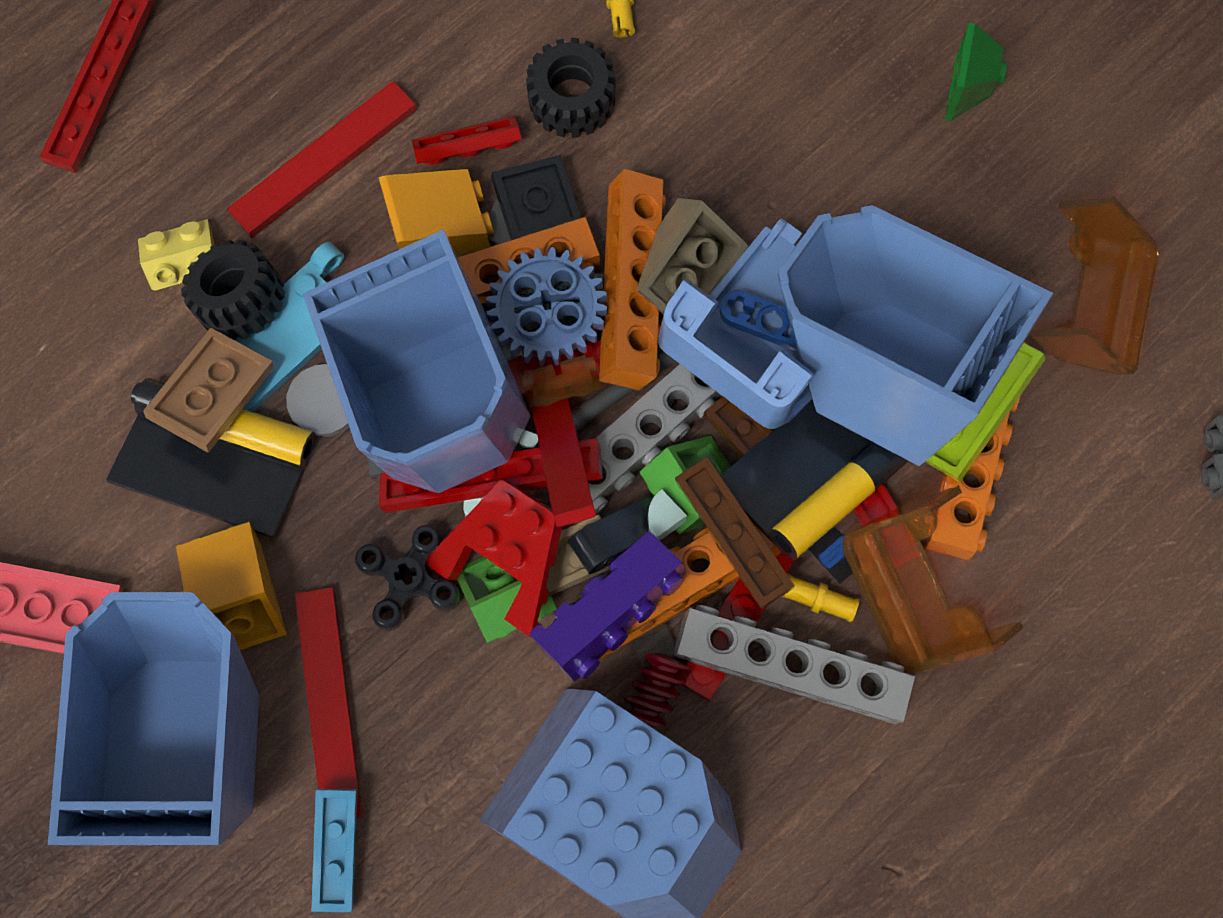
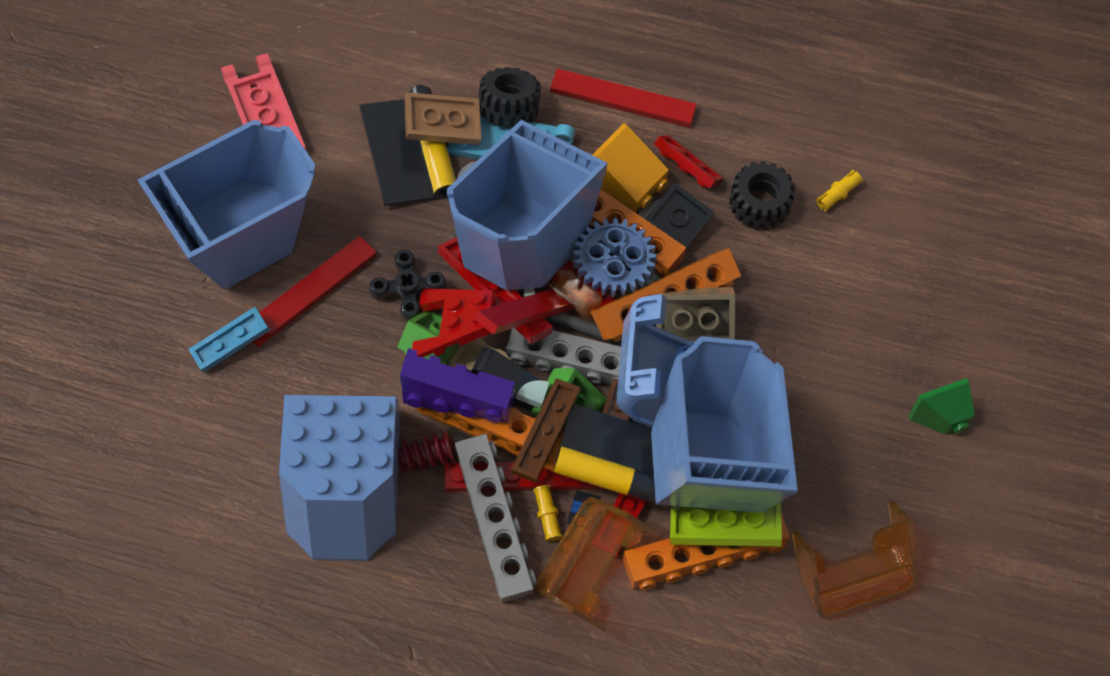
camera: 50 degrees right, 10 degrees down
(169, 253) = (509, 54): light yellow bracket -> none
(233, 583) = (340, 201): light orange slope -> none

